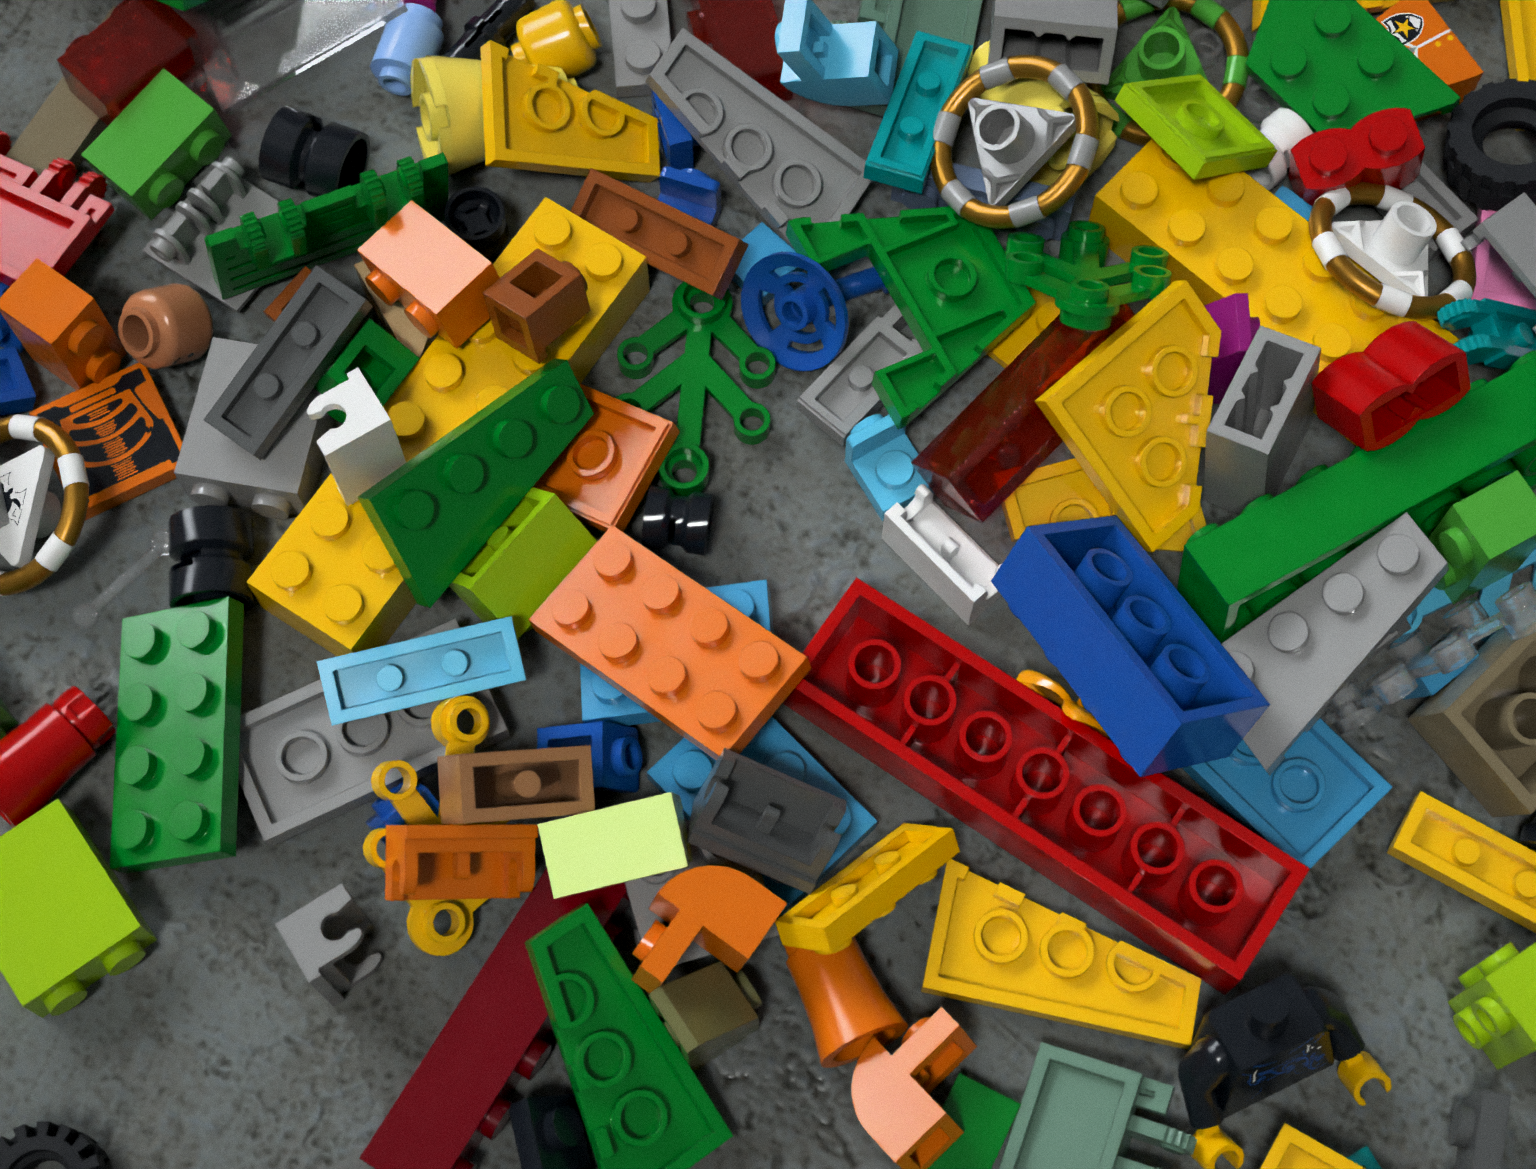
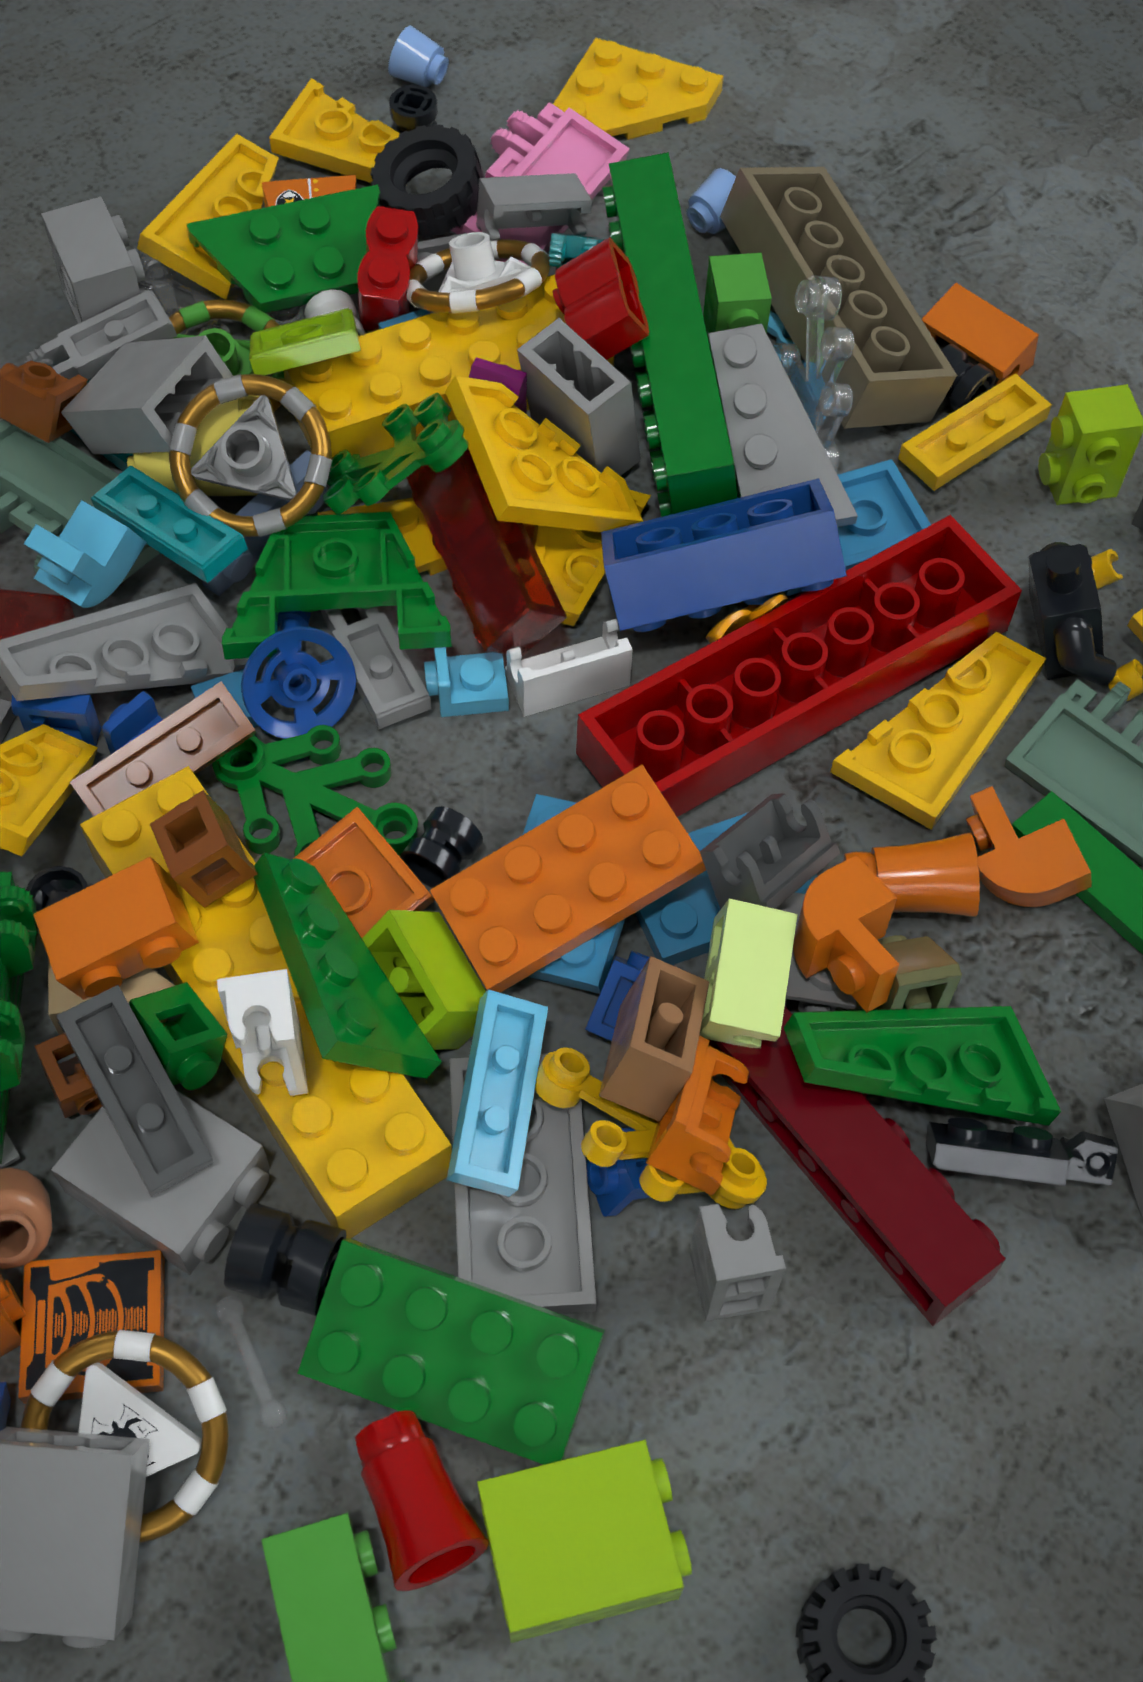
camera: 70 degrees left, 10 degrees down
(867, 888) = (850, 810): yellow plate -> none

